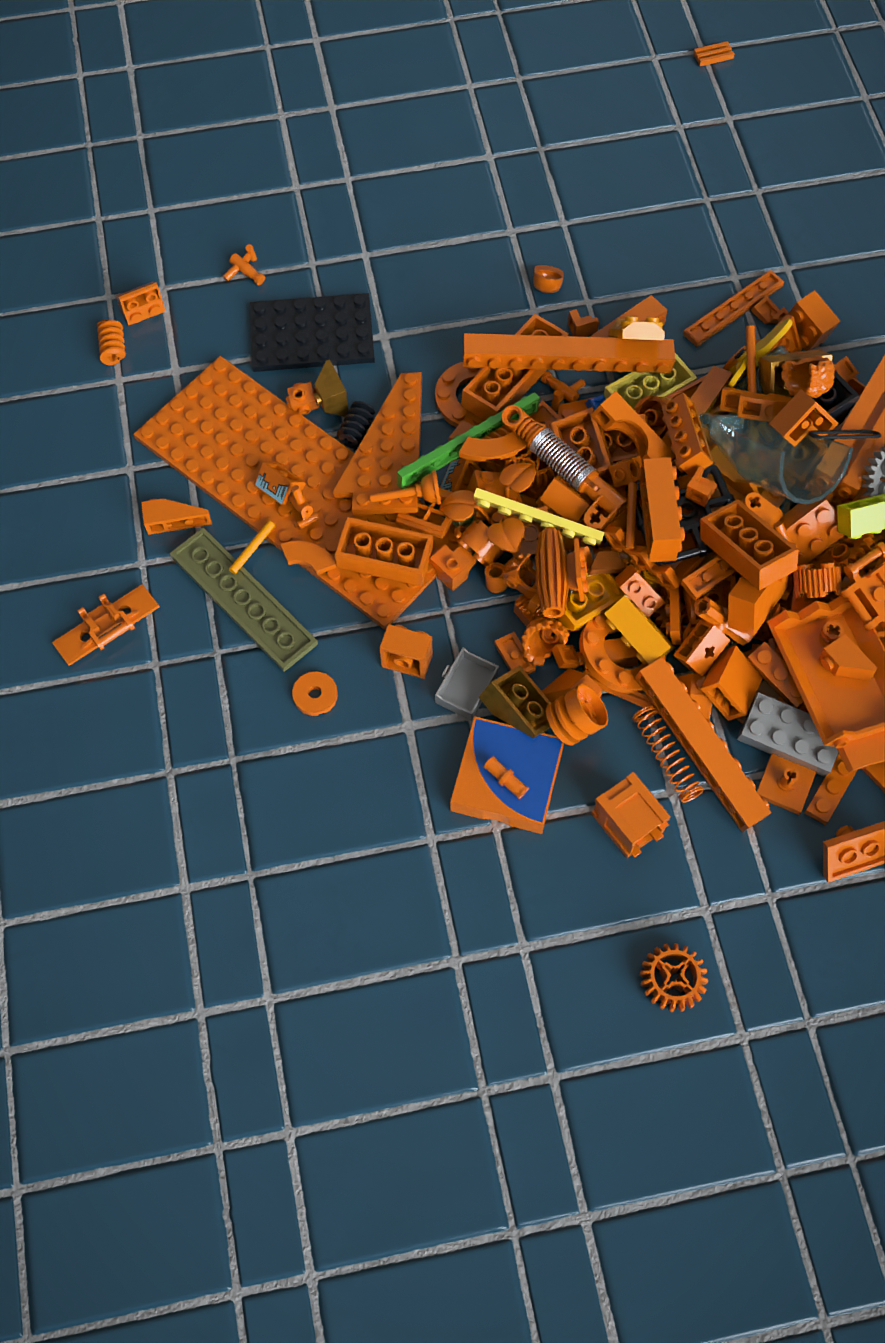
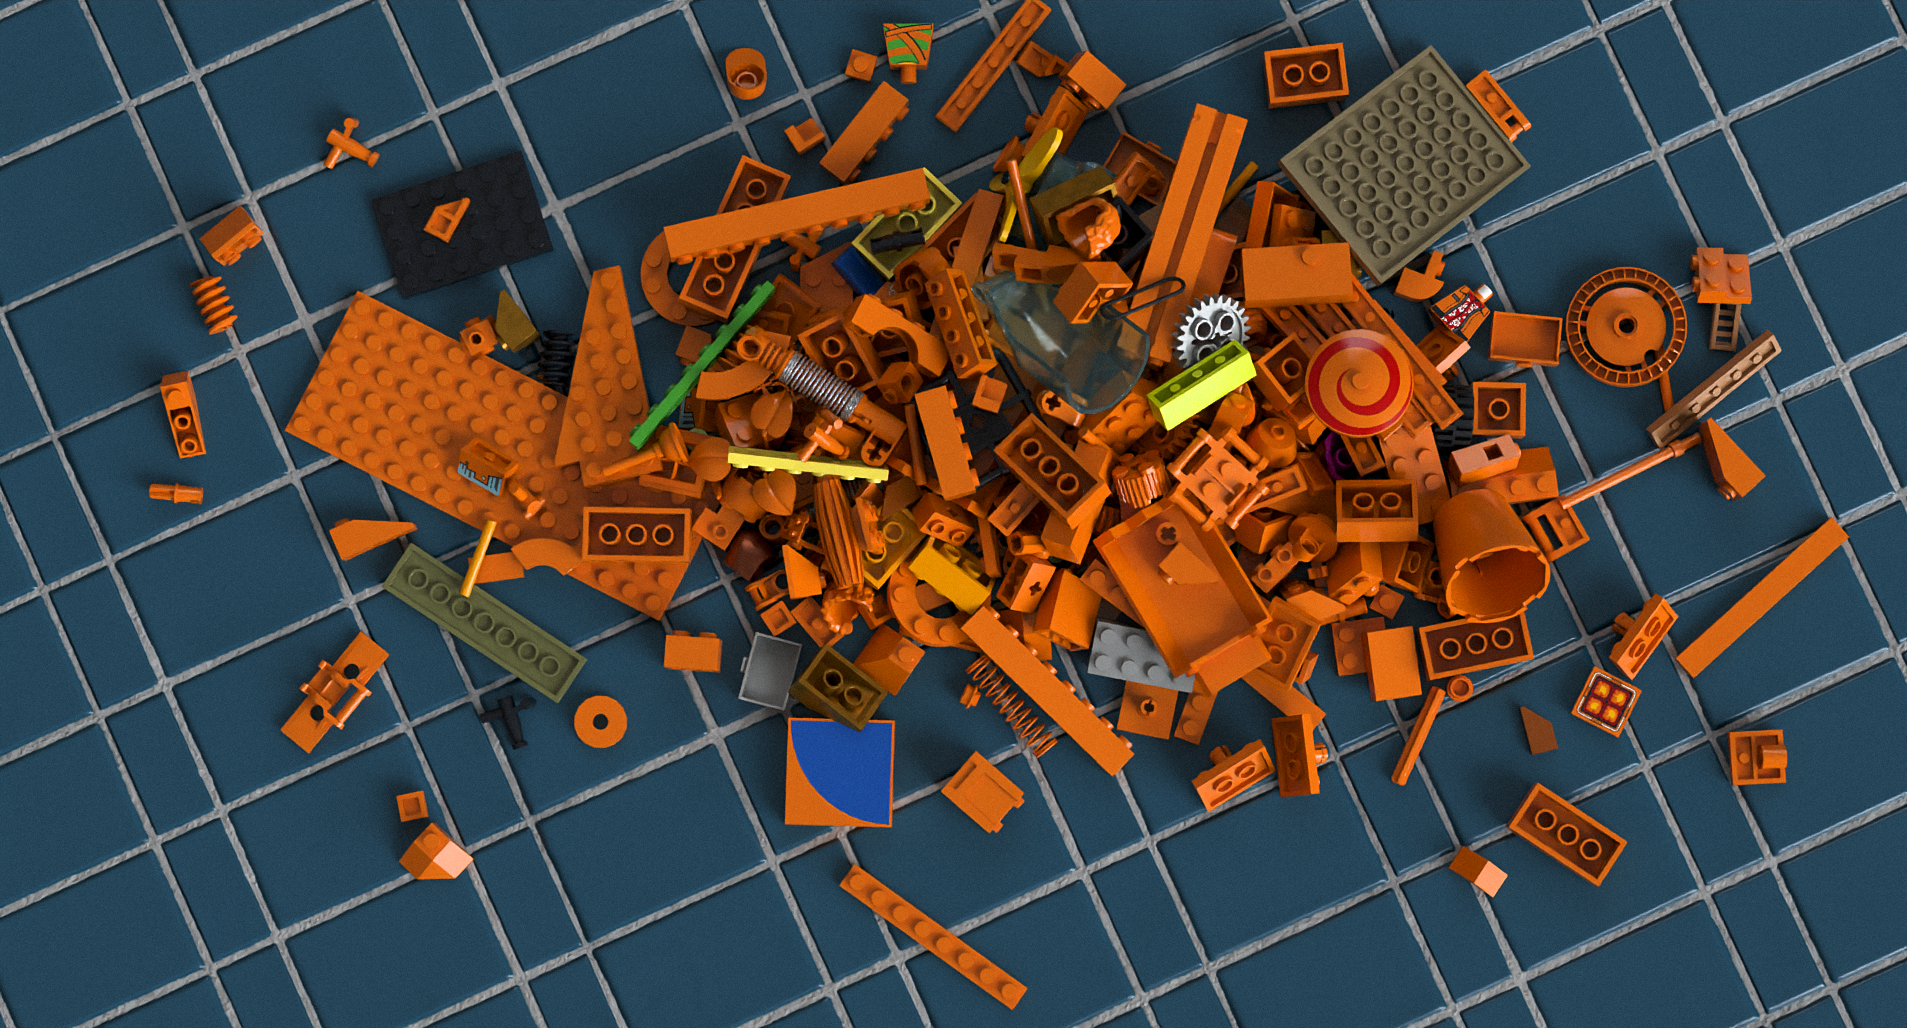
camera: 10 degrees left, 20 degrees up
(35, 459) = (177, 493): none -> orange axle
(61, 407) = (183, 413): none -> orange slope
(138, 723) = (412, 806): none -> orange plate
(143, 766) = (435, 855): none -> orange slope
(241, 668) = (509, 712): none -> black piece
(266, 562) = (499, 568): none -> orange tile
(300, 320) = (446, 218): none -> orange tile
(471, 592) = (750, 554): none -> copper piece
(482, 621) = (769, 590): none -> orange piece
(483, 644) = (778, 618): none -> orange plate
(506, 777) = (839, 785): orange pin -> none
(513, 604) = (802, 575): none -> orange slope
(554, 492) = (820, 437): none -> orange piece
(561, 936) = (933, 936): none -> orange plate
(577, 714) = (901, 695): orange wheel -> none
(632, 739) = (970, 696): none -> orange plate
(634, 291) = (861, 66): none -> orange plate
(634, 329) = (873, 161): slope -> none
(642, 389) = (897, 241): none -> black pin
(672, 283) = (908, 48): none -> torso
(680, 984) = (1080, 967): orange gear -> none

